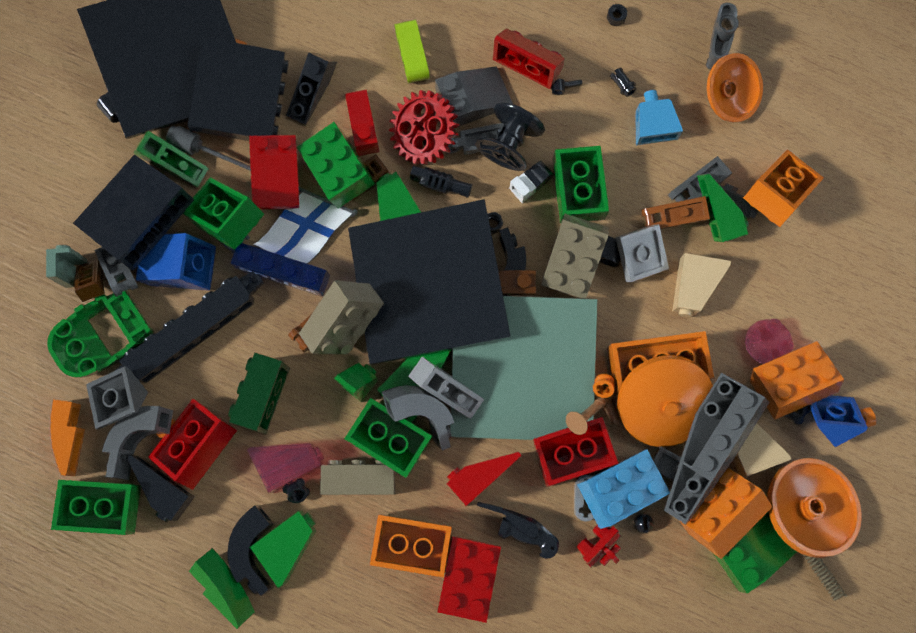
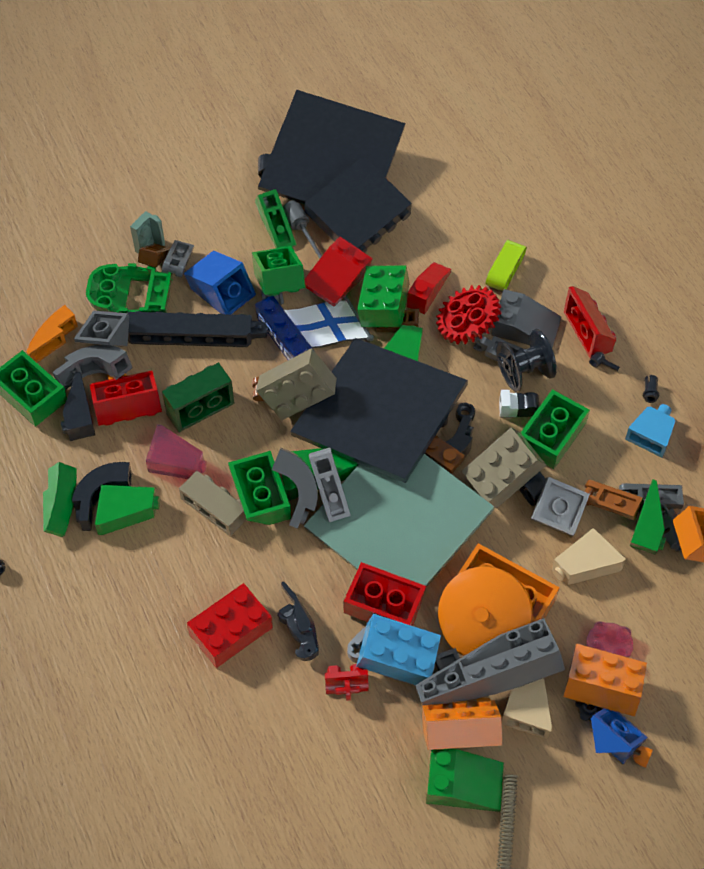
camera: 40 degrees right, 20 degrees down
(134, 212) = (221, 231): black brick -> none
(296, 491) = (161, 483): black plate -> none
(311, 86) = (413, 240): black slope -> none
(358, 380) = (271, 433): green slope -> none
(410, 545) = (208, 567): orange brick -> none
(440, 181) = (449, 358): black hinge -> none
(477, 477) = (302, 562): red slope -> none
(578, 421) = (403, 572): medium nougat piece -> none
(608, 390) = (441, 570): orange bush -> none
(620, 9) = (686, 348): black axle -> none
(638, 523) = (397, 698): black hinge -> none
(814, 508) = (539, 781): orange dish -> none

